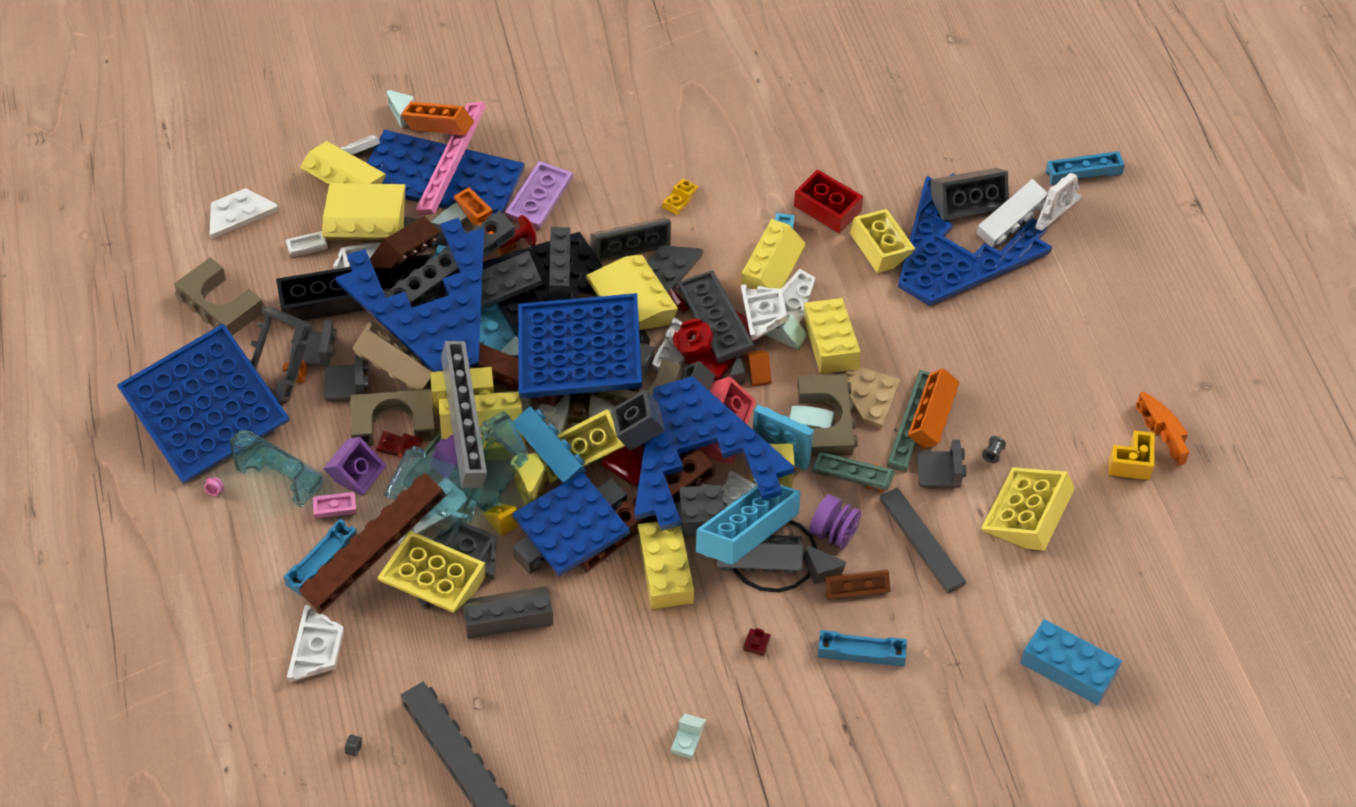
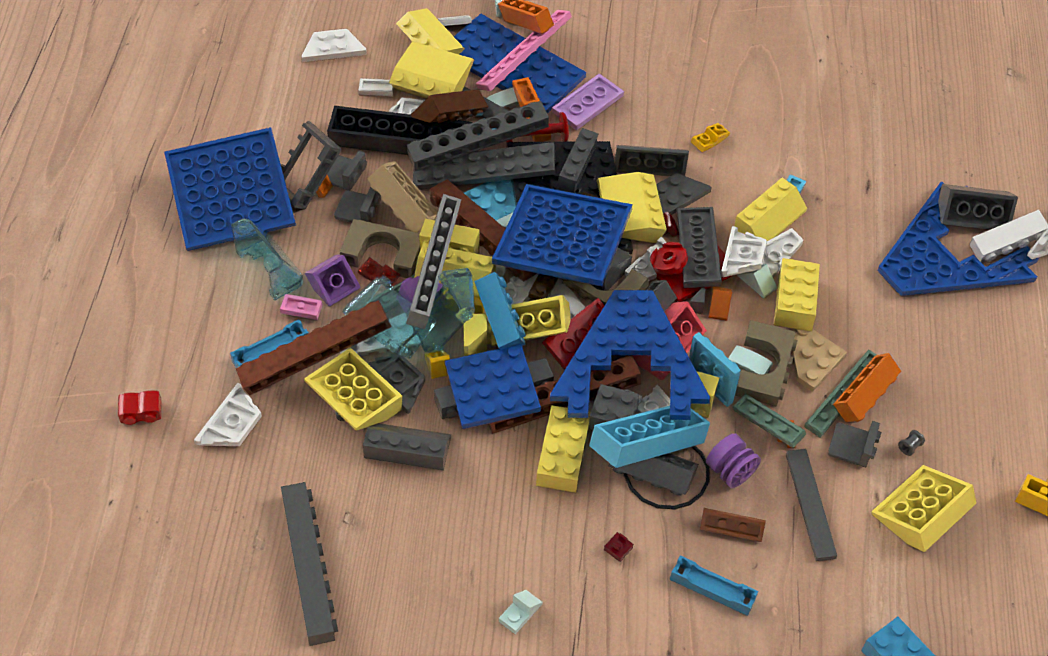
camera: 20 degrees right, 0 degrees up
(202, 280) = (274, 92): dark tan arch -> none
(212, 663) = (139, 407): none -> red brick
(214, 486) = (210, 260): bright pink plate -> none
(353, 745) = (223, 518): dark grey axle -> none
(430, 324) = (454, 177): blue wing -> none
(638, 420) = (585, 313): dark grey brick -> none
(822, 564) = (707, 496): dark grey slope -> none
(828, 201) = (841, 177): red brick -> none
(881, 240) = (876, 224): light yellow slope -> none

